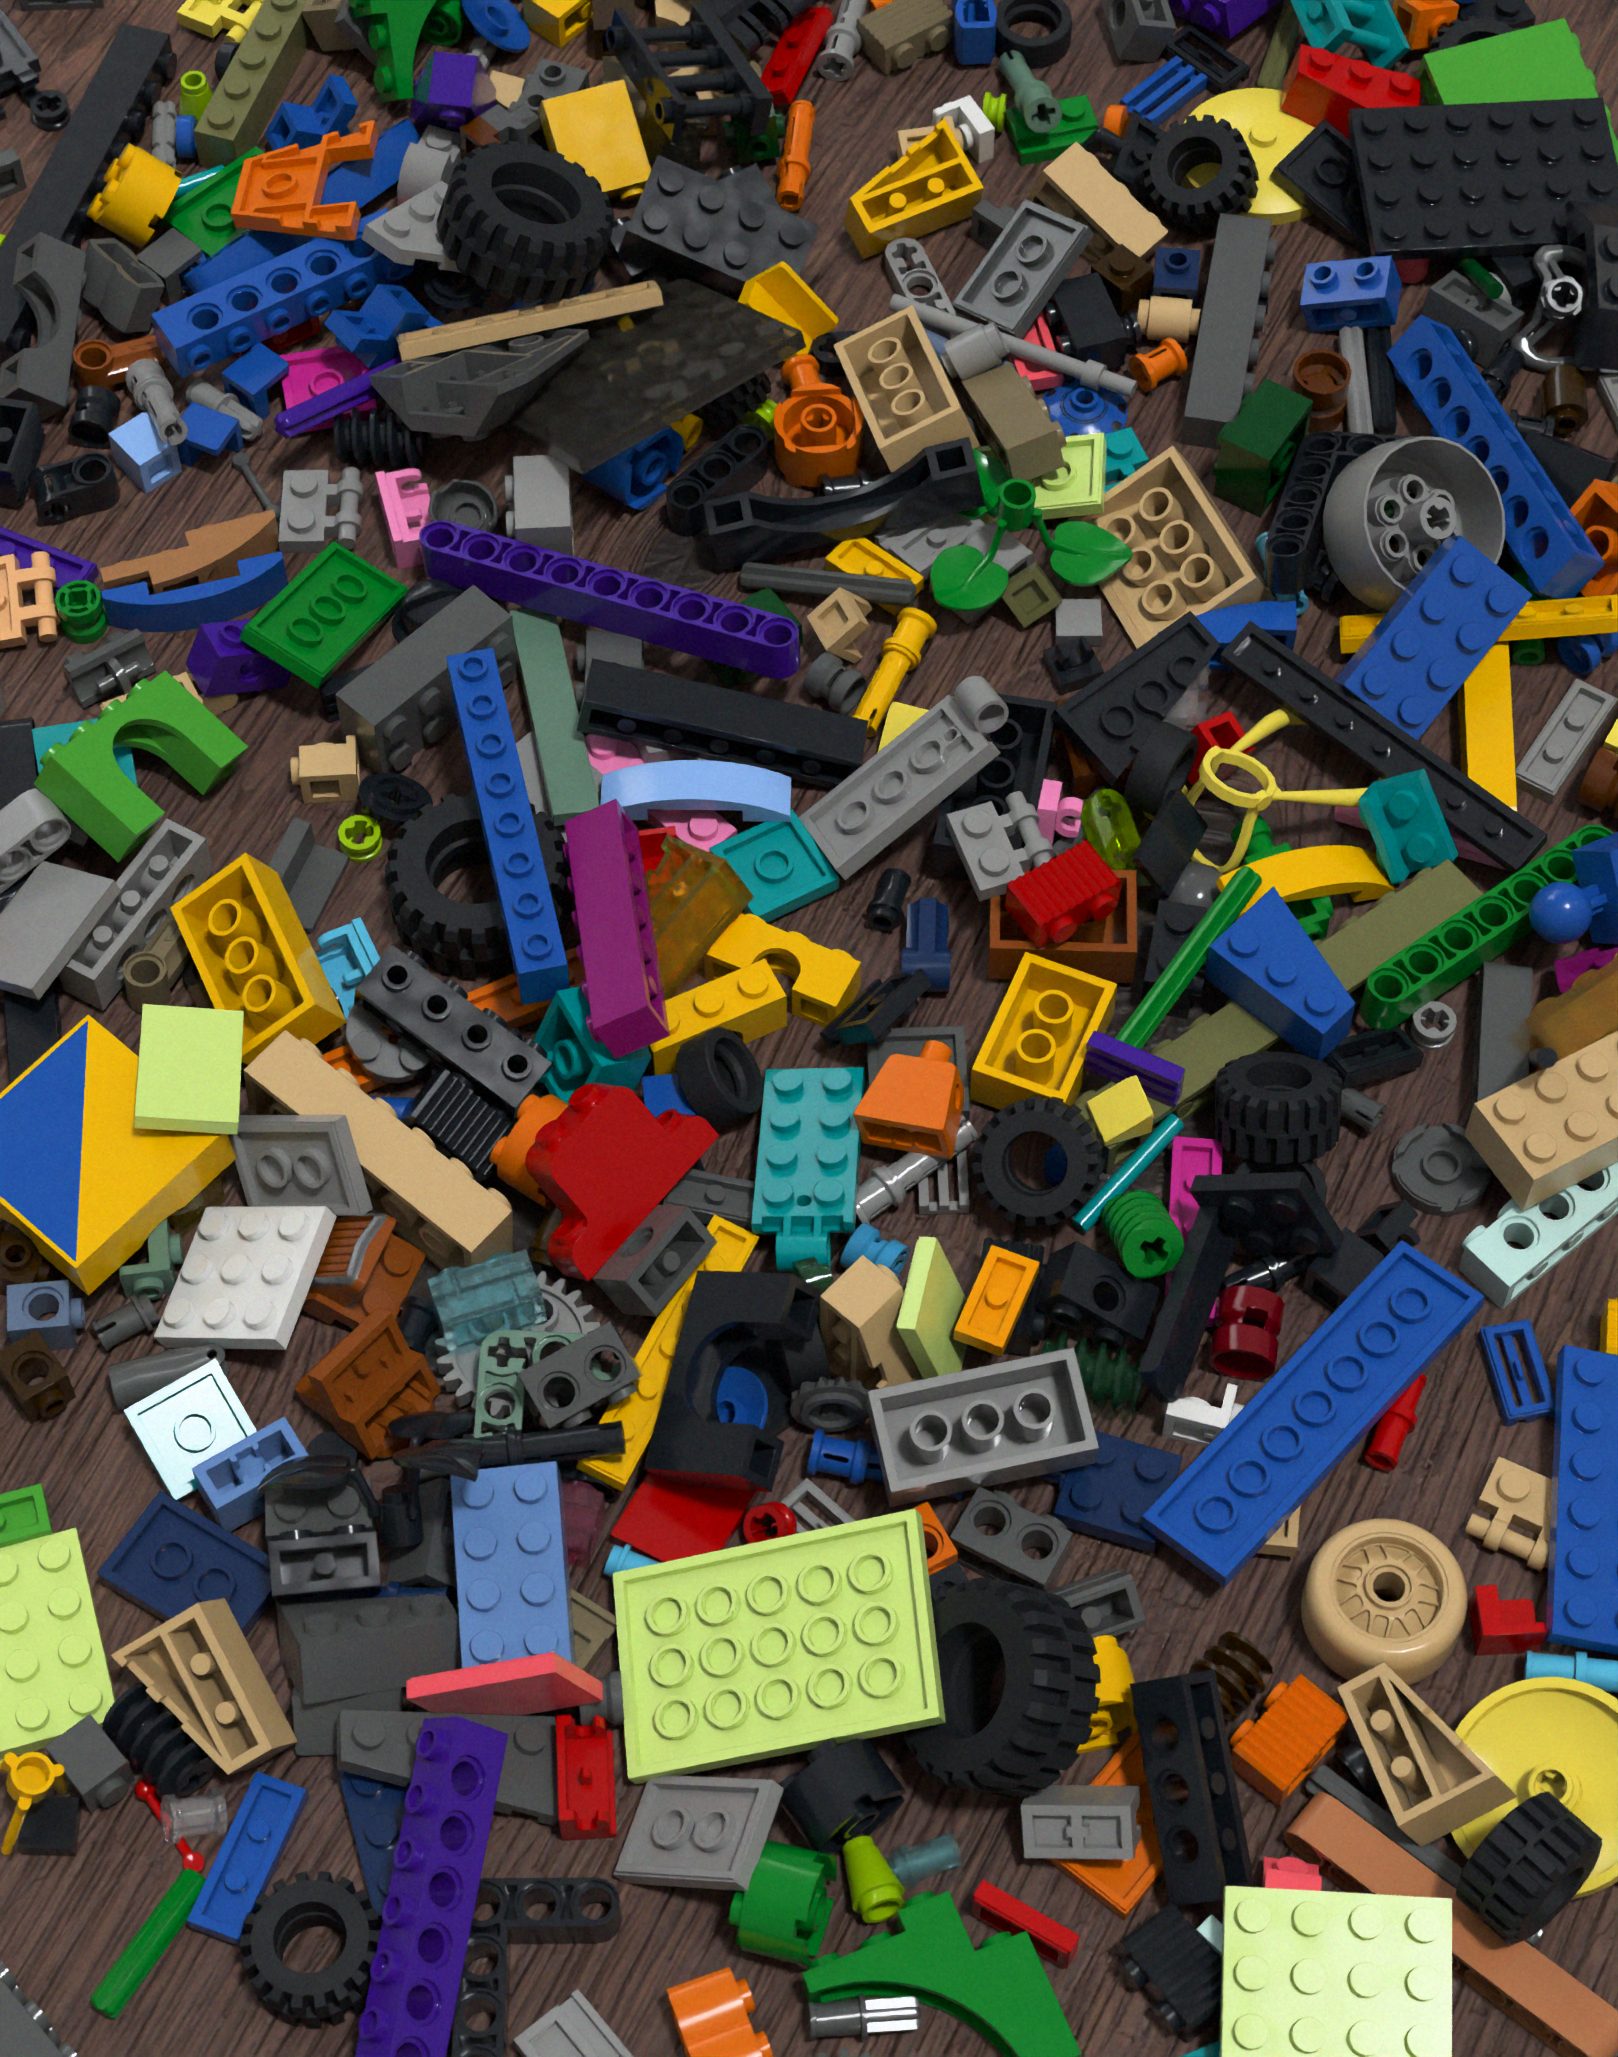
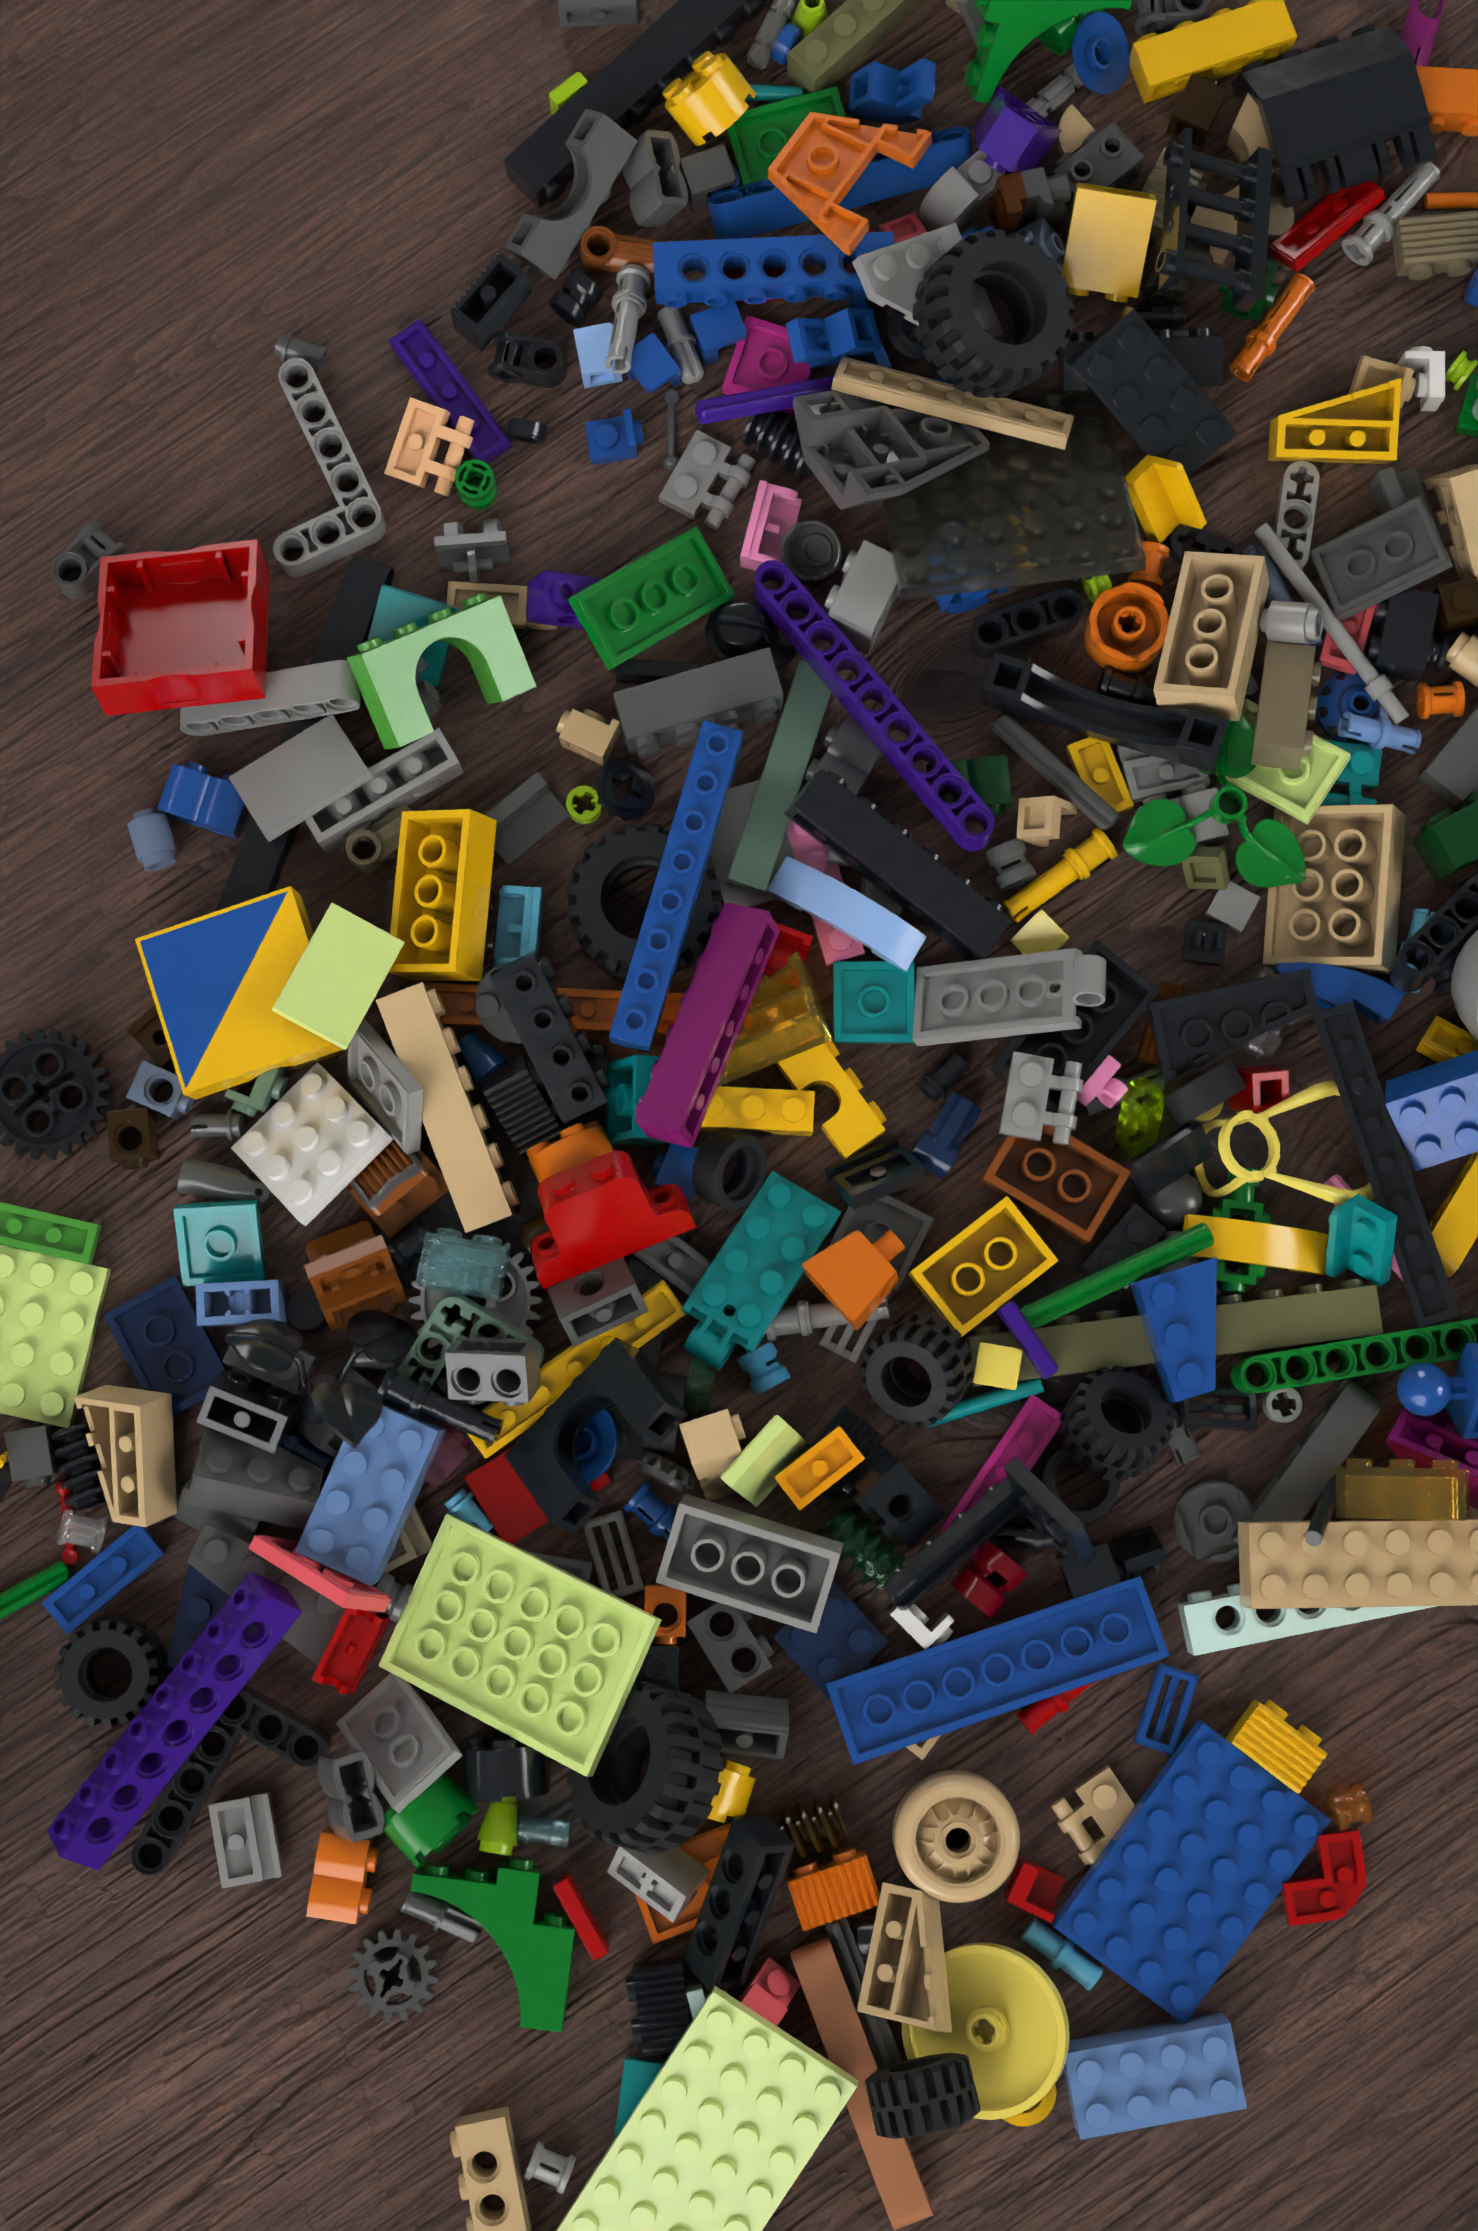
camera: 30 degrees right, 25 degrees up
(108, 545) = (526, 431): none -> black tile
(188, 607) = (621, 526): blue slope -> none
(208, 557) = (599, 488): medium nougat slope -> none
(210, 506) = (613, 438): none -> blue bracket
(678, 1913) = (349, 1783): none -> dark grey brick
(780, 1512) = (568, 1545): red bush -> none
(1063, 895) = (1058, 1172): red brick -> none
(1119, 412) = (1379, 733): none -> medium blue pin
(1143, 1233) = (957, 1468): green piece -> none

